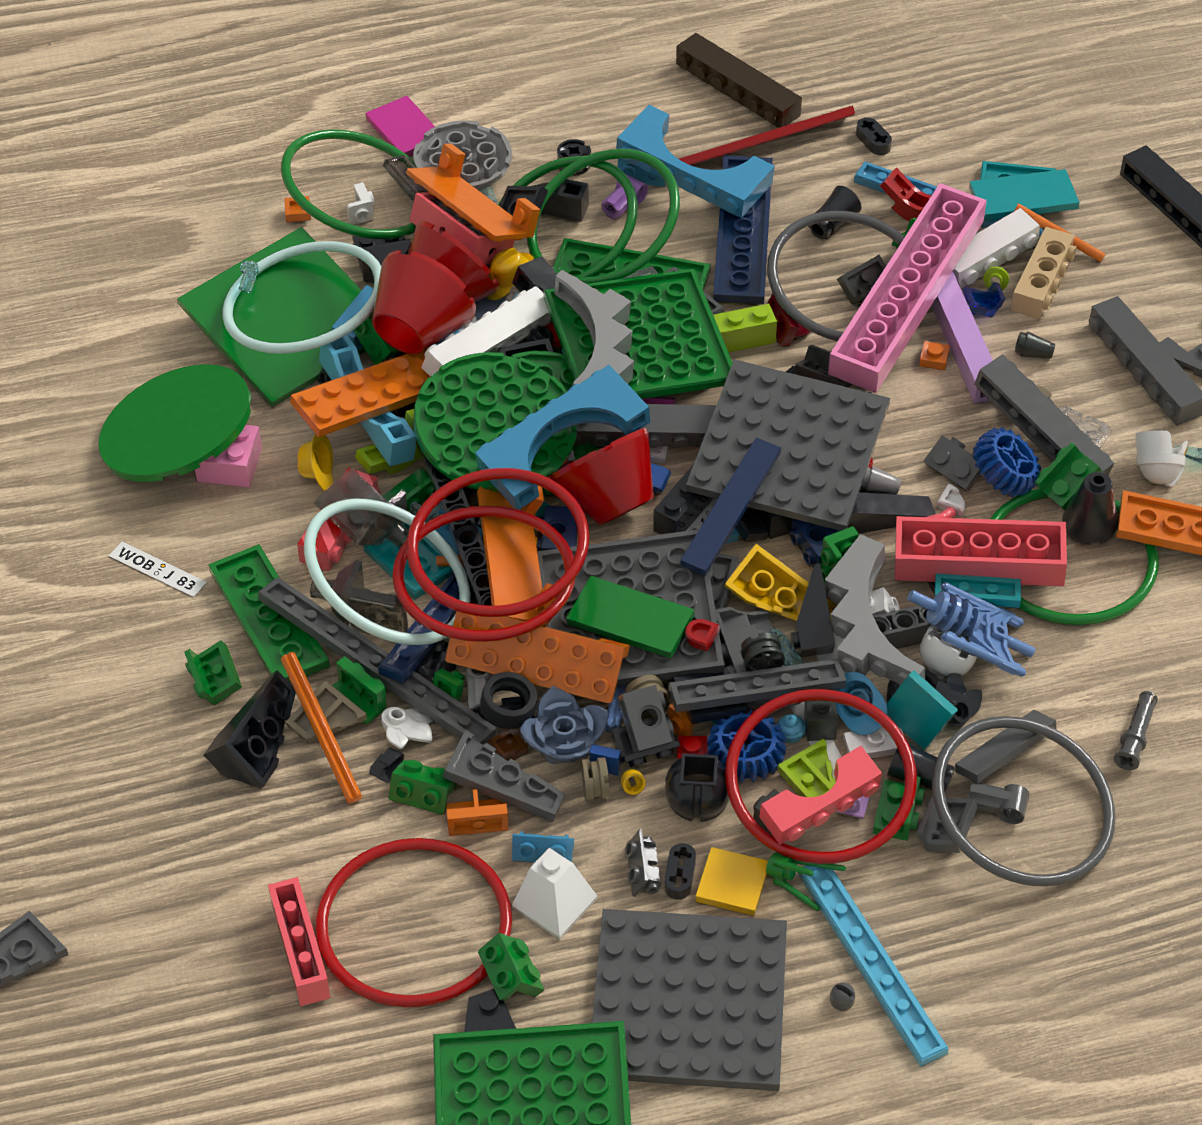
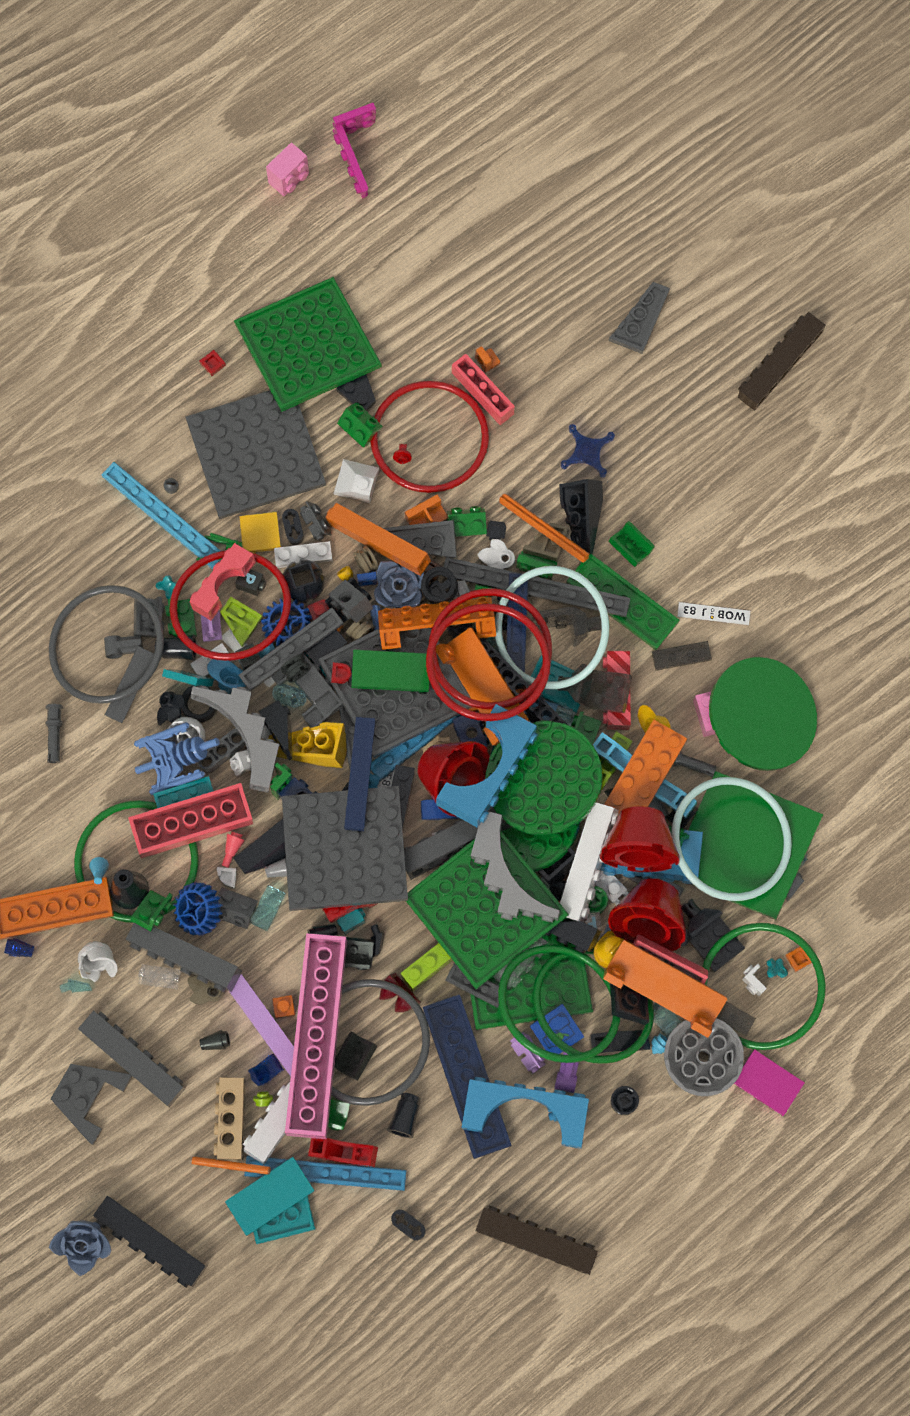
camera: 155 degrees right, 25 degrees up
(197, 807) = (587, 450): none -> clear blue piece
(230, 534) = (681, 655): none -> clear smoke tile
(250, 271) = (780, 844): clear light blue arm -> none
(266, 990) = (486, 359): none -> orange bracket
(293, 418) = (695, 764): none -> dark grey pin
(332, 207) = (776, 967): none -> teal piece
(469, 895) = (402, 456): none -> red plate
(501, 185) = (658, 1044): none -> medium azure plate
(532, 846) = (385, 507): dark azure hinge -> none
(566, 789) = (378, 539): none -> orange brick
(607, 229) = (563, 1027): none -> blue tile
(655, 220) = (531, 1060): none -> lavender hinge
(679, 828) = (314, 552): none -> white plate
(768, 136) = (490, 1182): red tile -> none
(901, 855) = (166, 585): none -> teal piece
(911, 454) = (267, 908): none -> clear light blue slope
(1125, 544) = (98, 868): none -> medium azure cone

